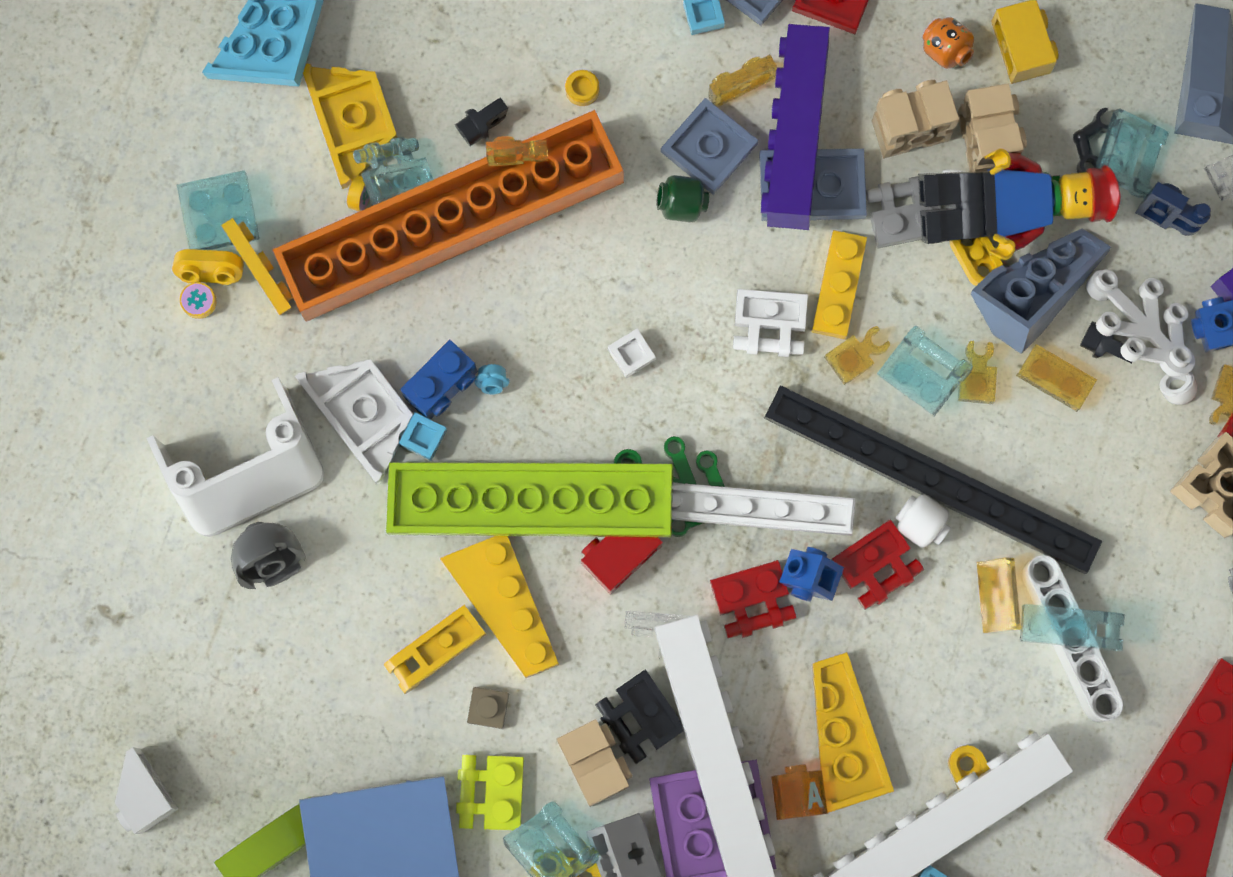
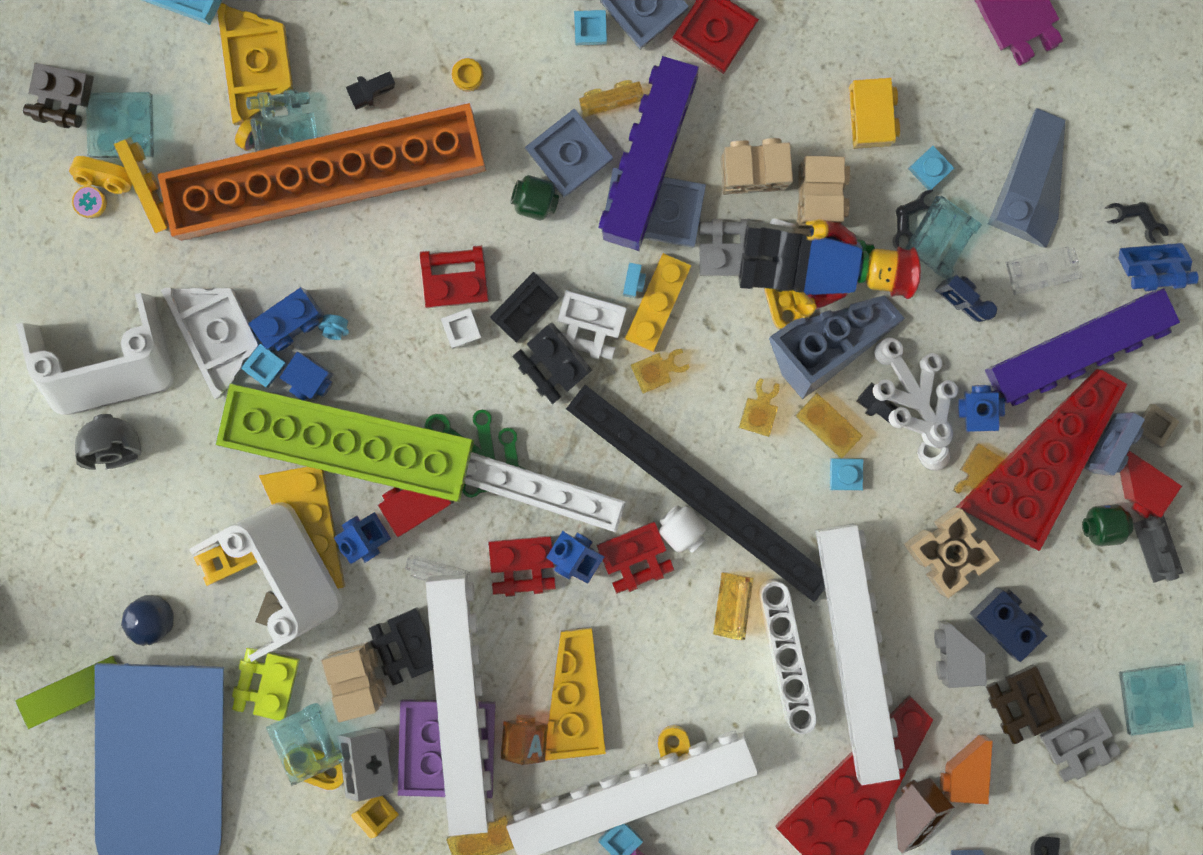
camera: 10 degrees right, 10 degrees up
(146, 182) = (60, 85): none -> plate
(344, 746) = (147, 620): none -> dark blue hair
(473, 438) = (306, 377): none -> blue brick
(499, 645) = (290, 567): none -> white windscreen
(508, 151) = (380, 127): clear yellow plate -> none
(565, 607) = (362, 538): none -> blue brick
(613, 312) = (454, 288): none -> red plate
(696, 316) = (524, 307): none -> black hinge
(744, 361) = (558, 357): none -> black plate
(808, 265) = (634, 281): none -> medium azure plate
(917, 379) = (705, 403): clear light blue plate -> none
(948, 42) = (804, 101): orange head -> none
(1071, 627) = (786, 651): clear light blue plate -> none
(1088, 427) = (846, 474): none -> medium azure plate
(1099, 86) = (931, 168): none -> medium azure plate
(1151, 617) = (858, 654): none -> white brick

